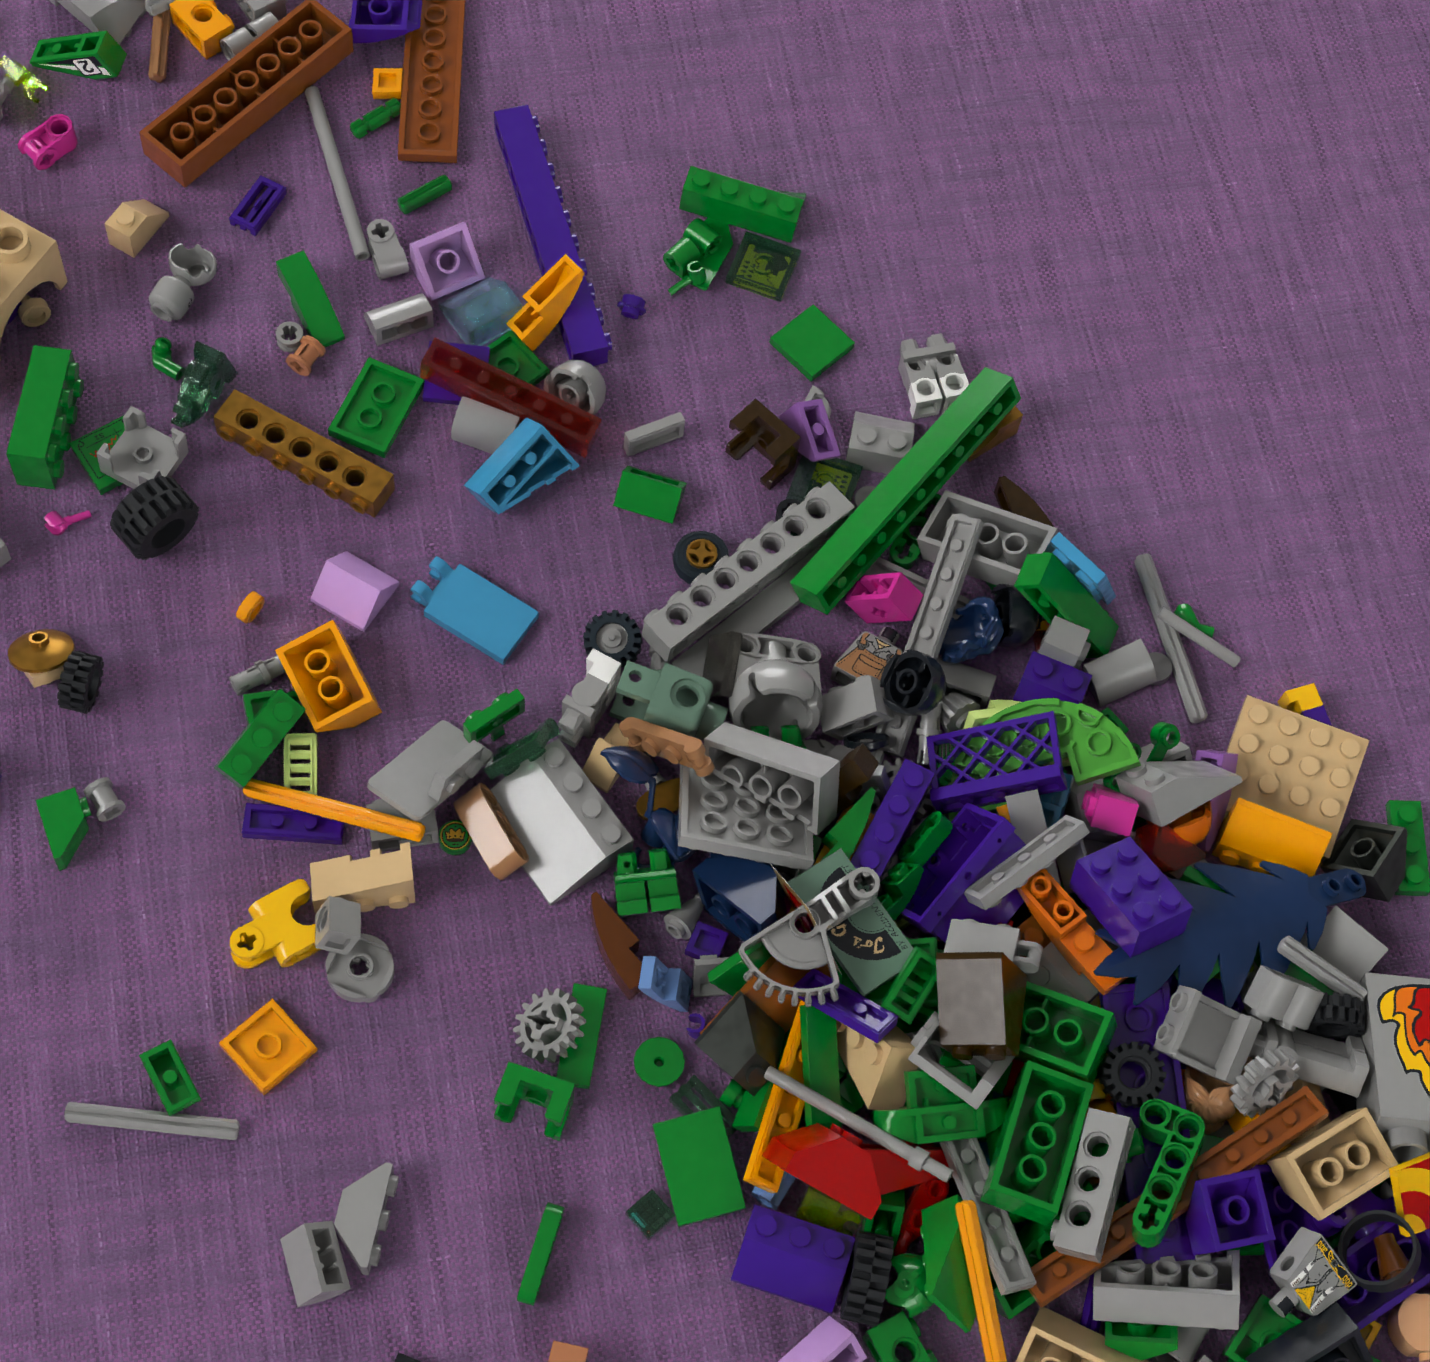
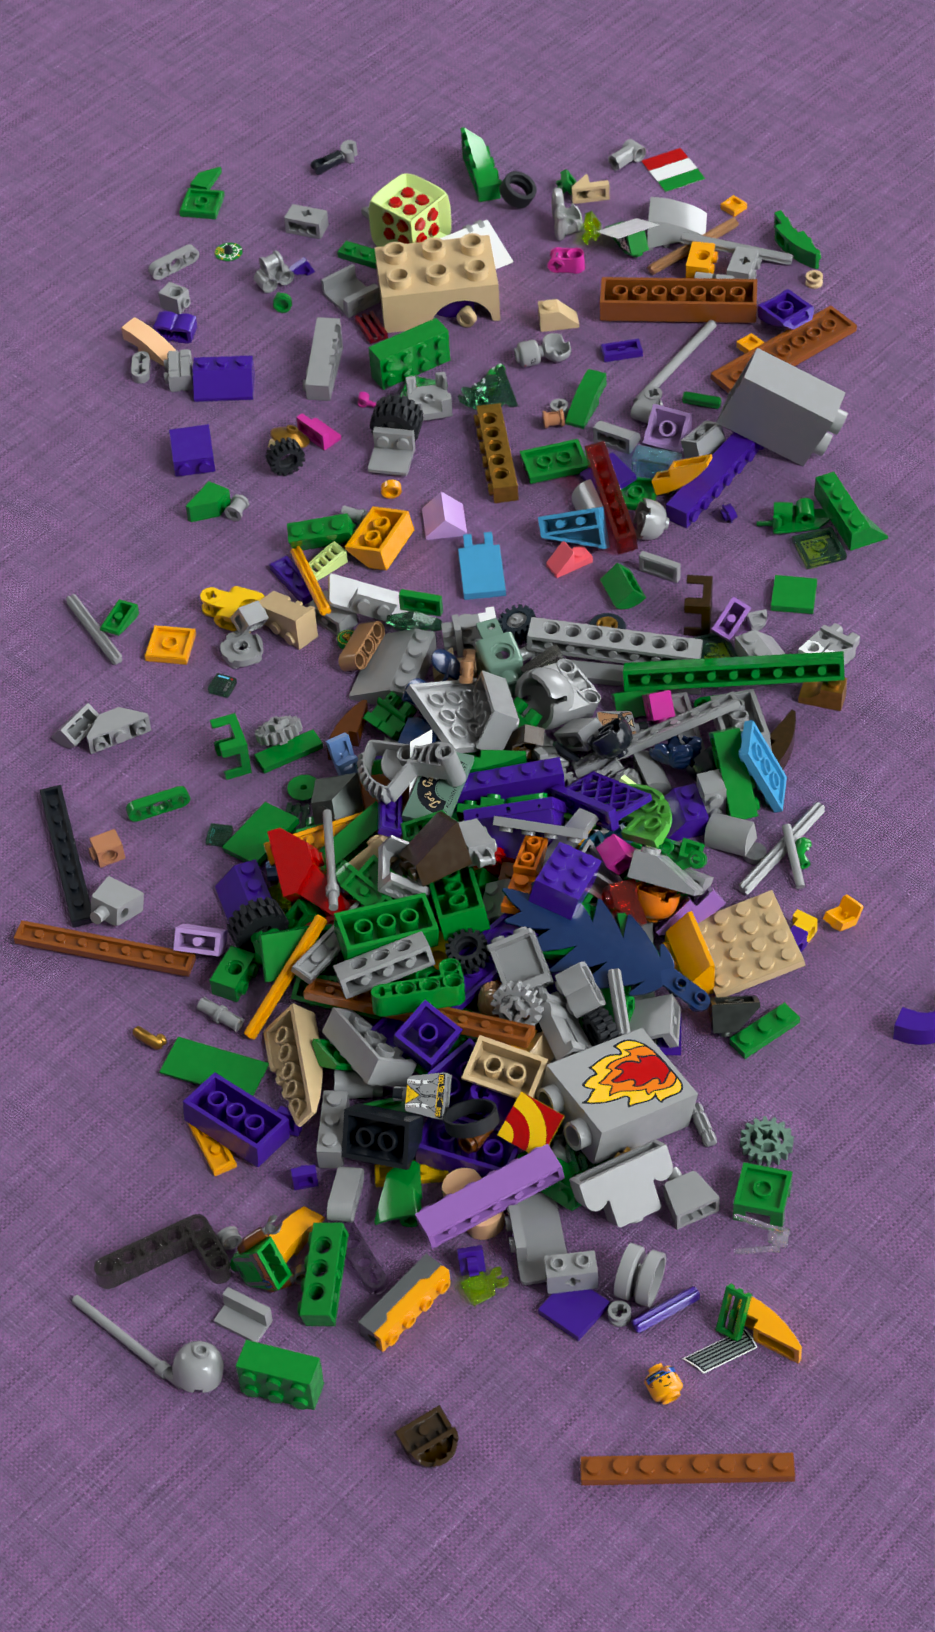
camera: 65 degrees right, 15 degrees down
(60, 612) = (317, 431): none -> dark pink panel
(79, 45) = (627, 228): none -> white sticker
(188, 561) = (392, 451): none -> light grey bracket
(375, 118) = (723, 354): green axle -> none
(399, 1034) = (222, 685): none -> clear green tile
(506, 245) = (703, 440): none -> light grey brick
(550, 513) = (568, 559): none -> coral slope
(574, 135) = (783, 408): none -> light grey brick
(835, 626) = (631, 701): none -> green panel
(1315, 653) = (845, 914): none -> light orange bracket

